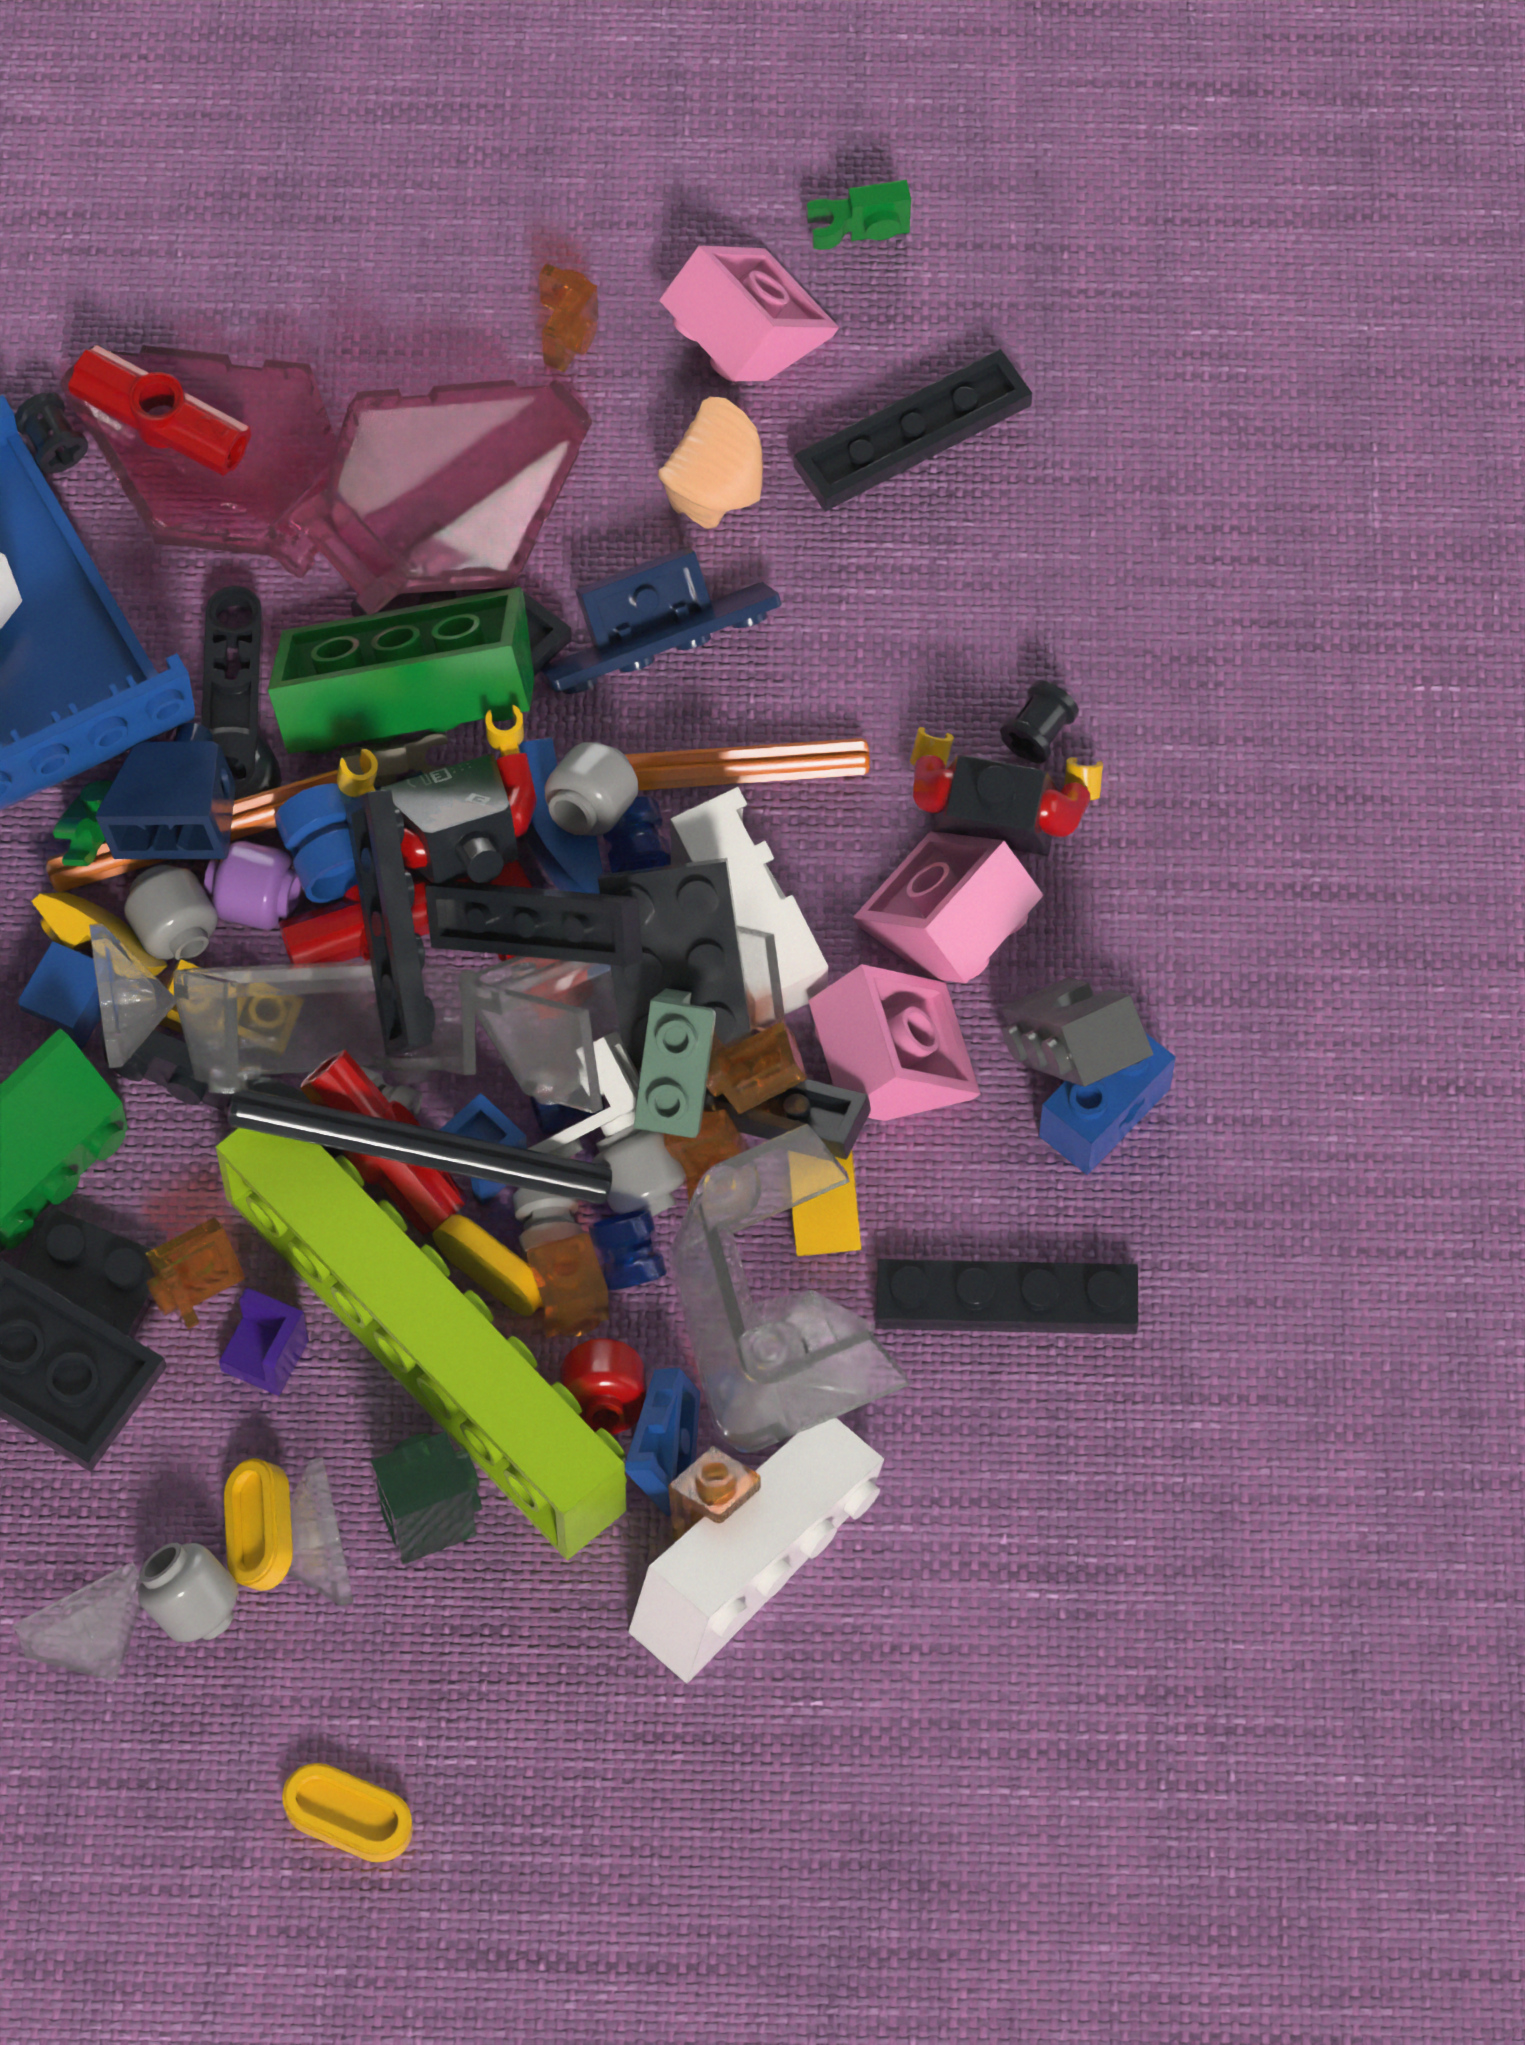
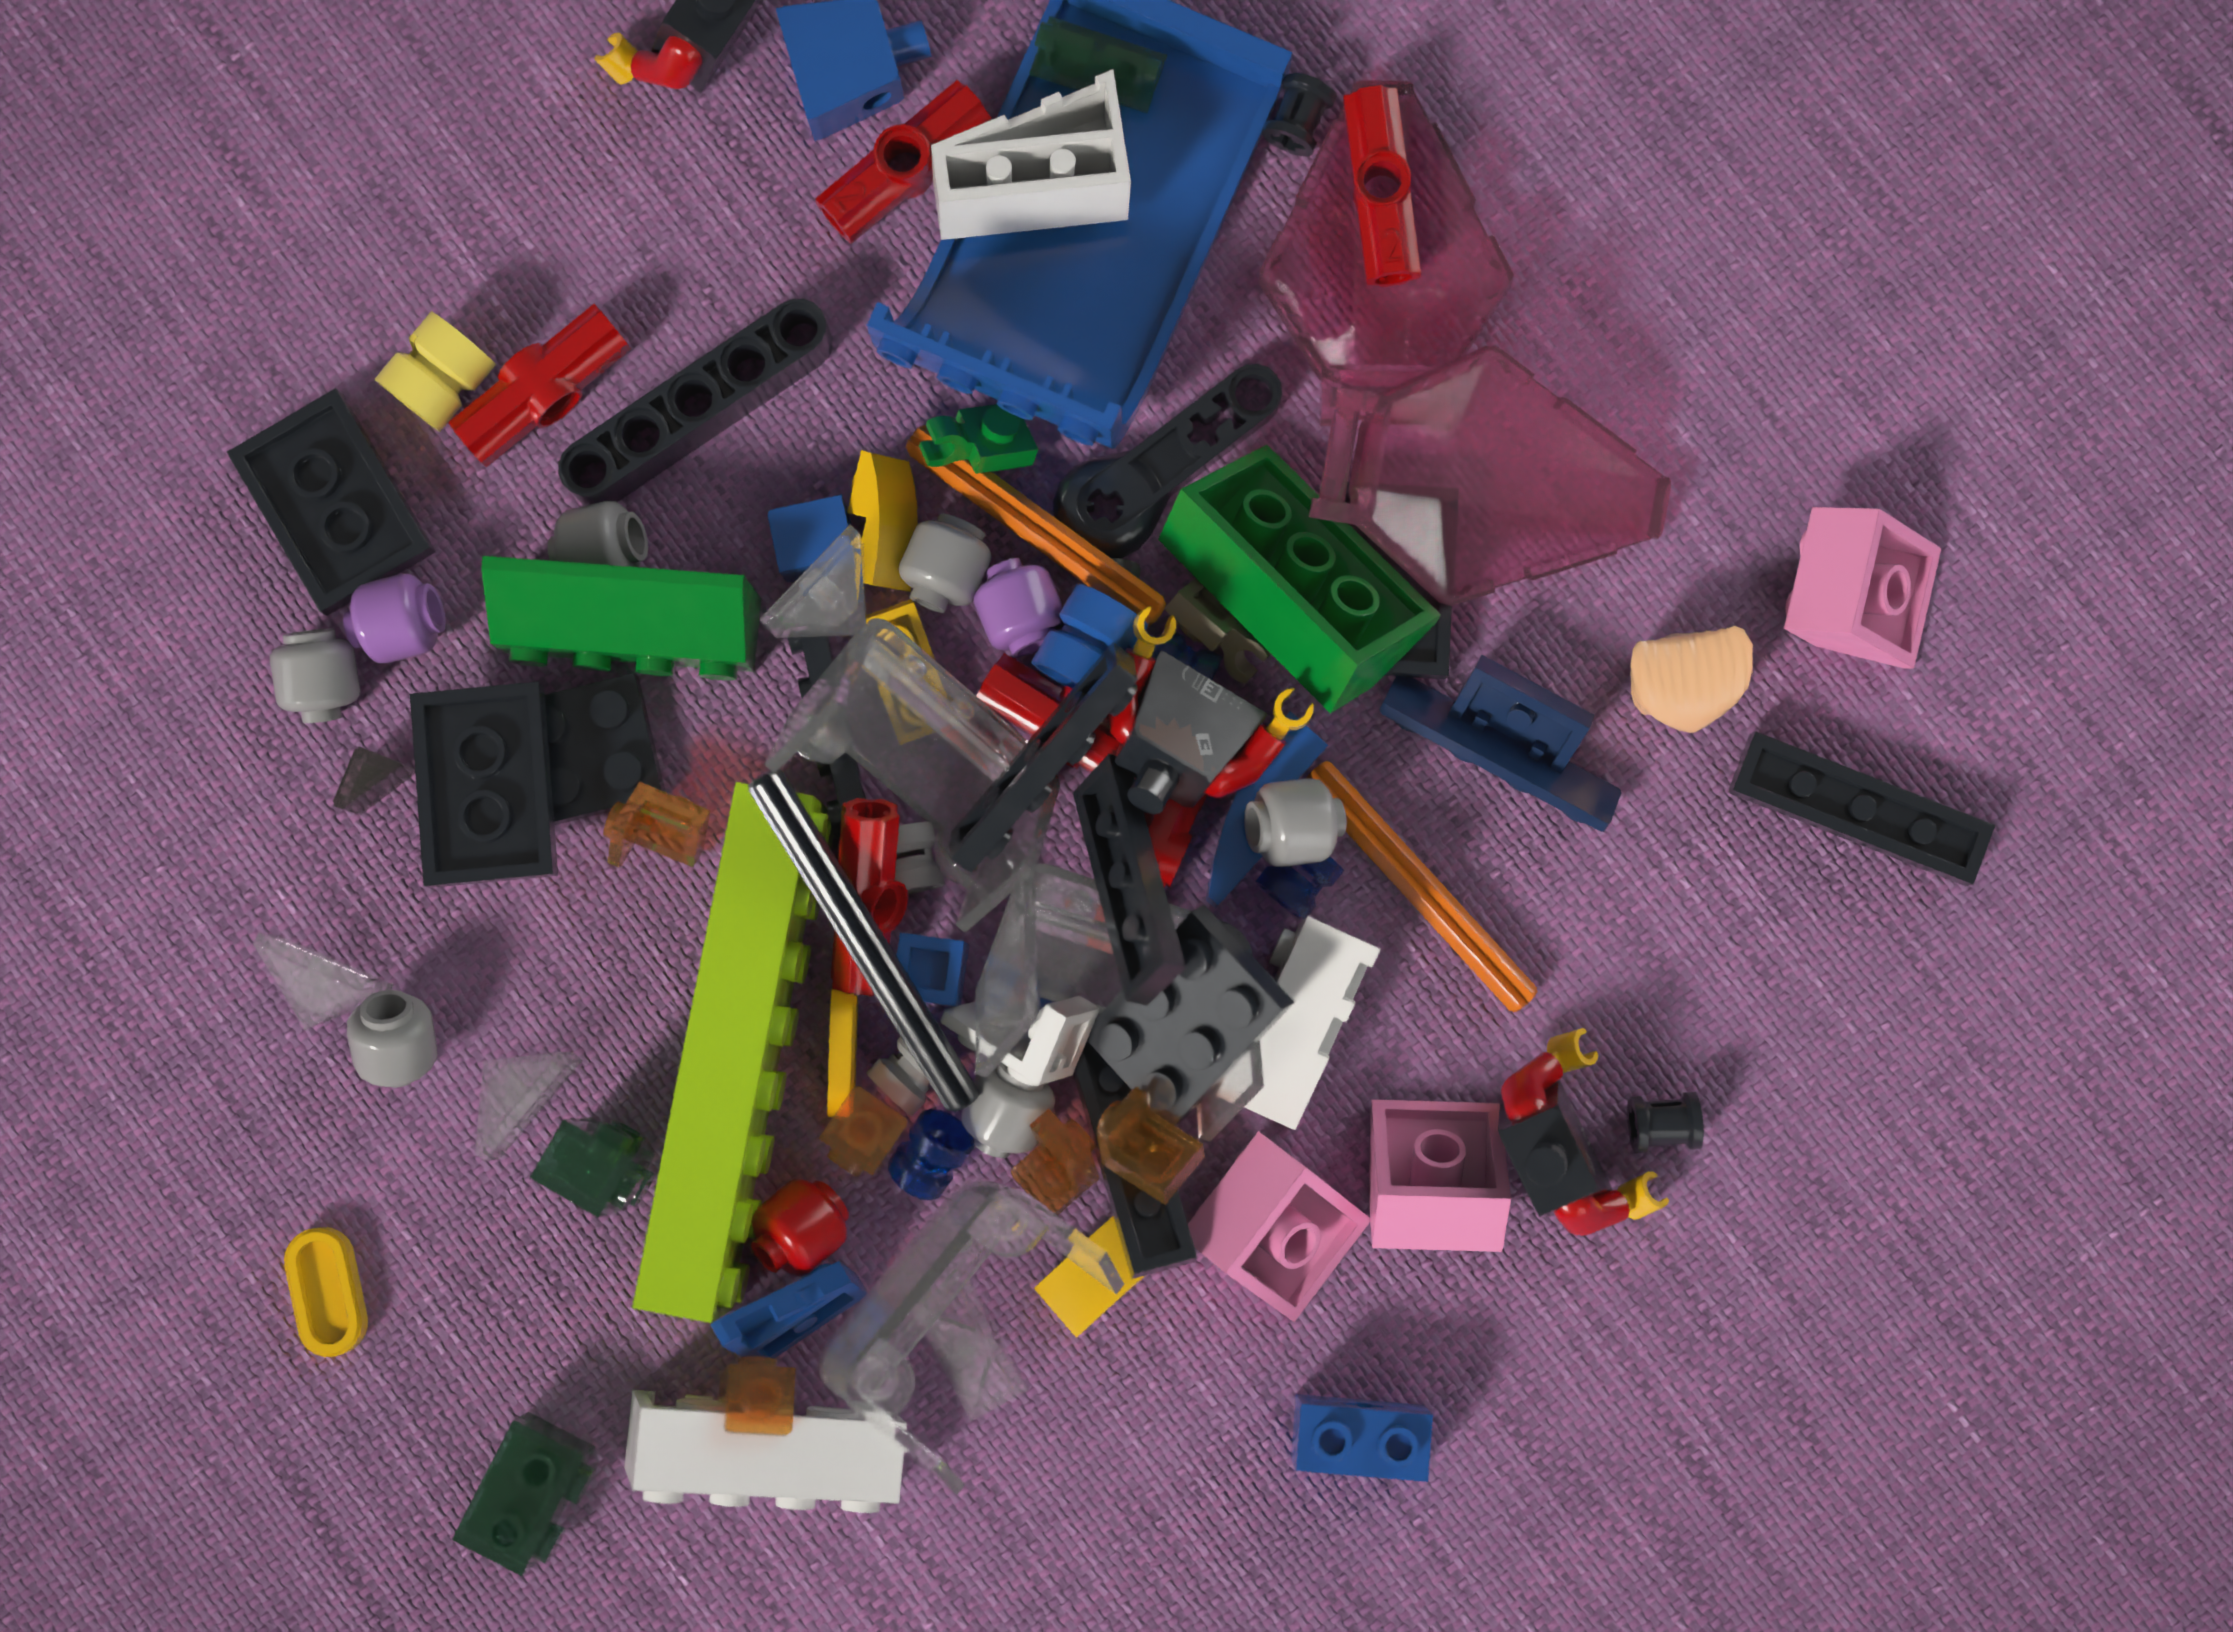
camera: 55 degrees right, 20 degrees up
(171, 800) = (1030, 490): dark blue torso -> none
(258, 1524) = (495, 1043): yellow tile -> none
(265, 1342) = (644, 929): dark purple panel -> none
(575, 315) = (1734, 452): clear orange bracket -> none
(645, 1757) = (525, 1494): none -> clear green brick
(675, 1065) = (1088, 1093): sand green bracket -> none
(867, 213) = (2042, 613): green plate -> none
(1007, 1296) = (1132, 1479): black plate -> none
(1074, 1032) = (1373, 1412): dark grey arch -> none

